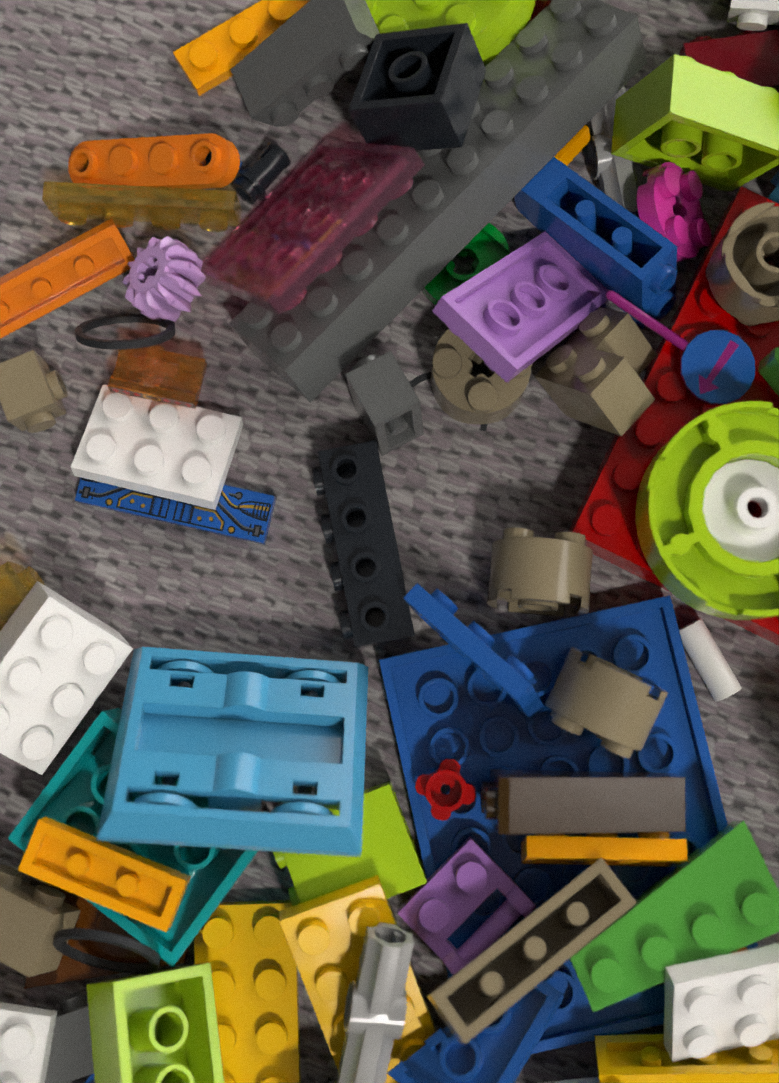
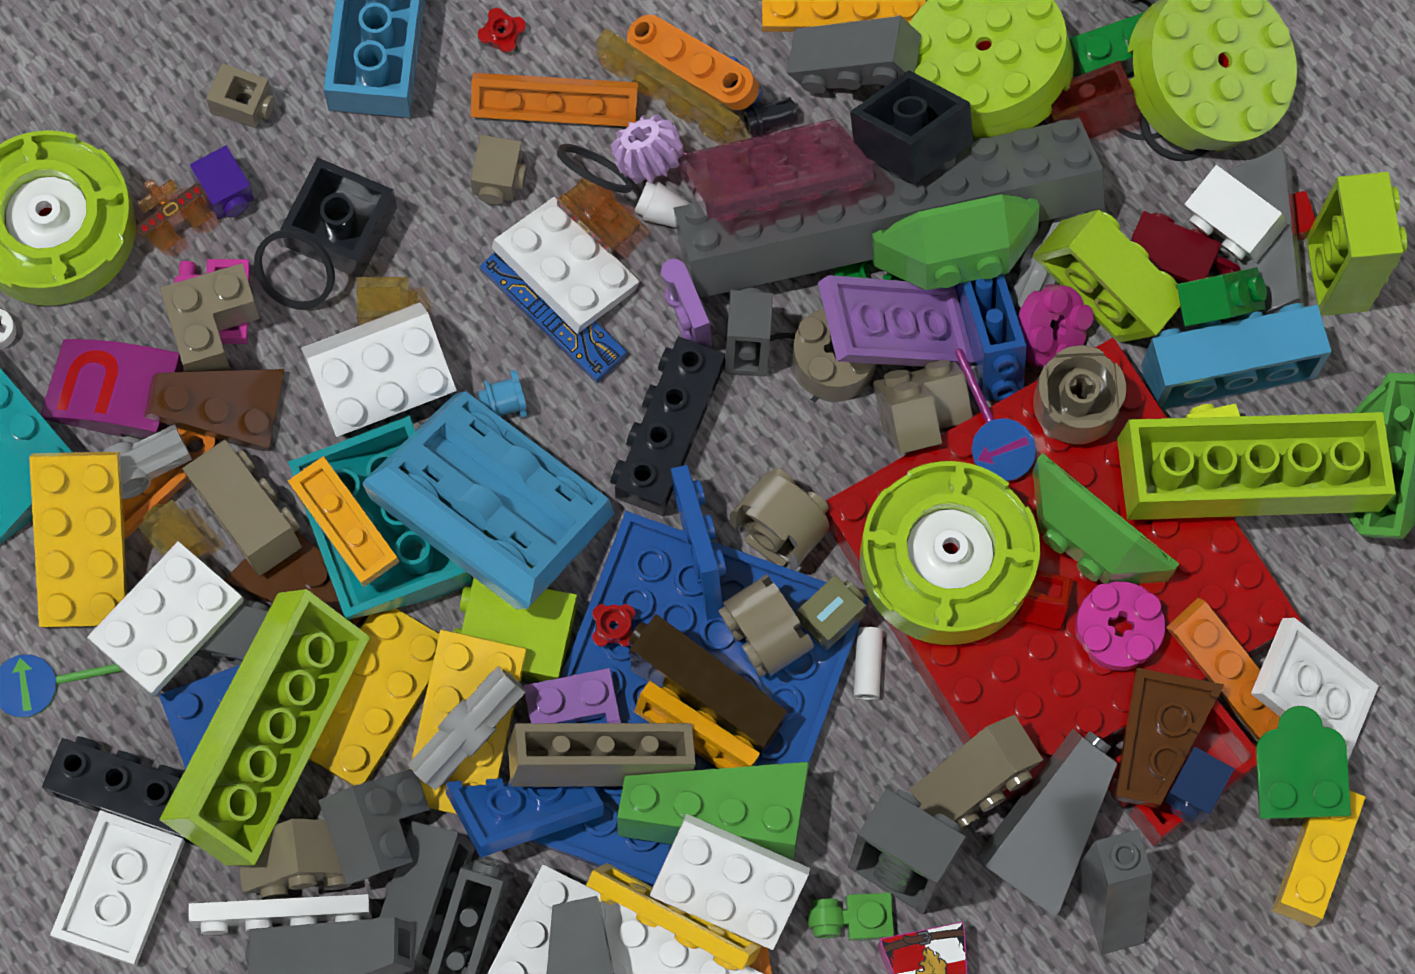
camera: 25 degrees right, 10 degrees down
(118, 940) = (319, 555): black piece -> none
(183, 621) = (504, 396): none -> dark azure brick
(210, 328) = (657, 204): none -> white cone
(315, 420) = (682, 296): none -> medium lavender plate
(535, 185) = (958, 241): none -> bright green wedge
(653, 638) = (831, 611): none -> olive brick

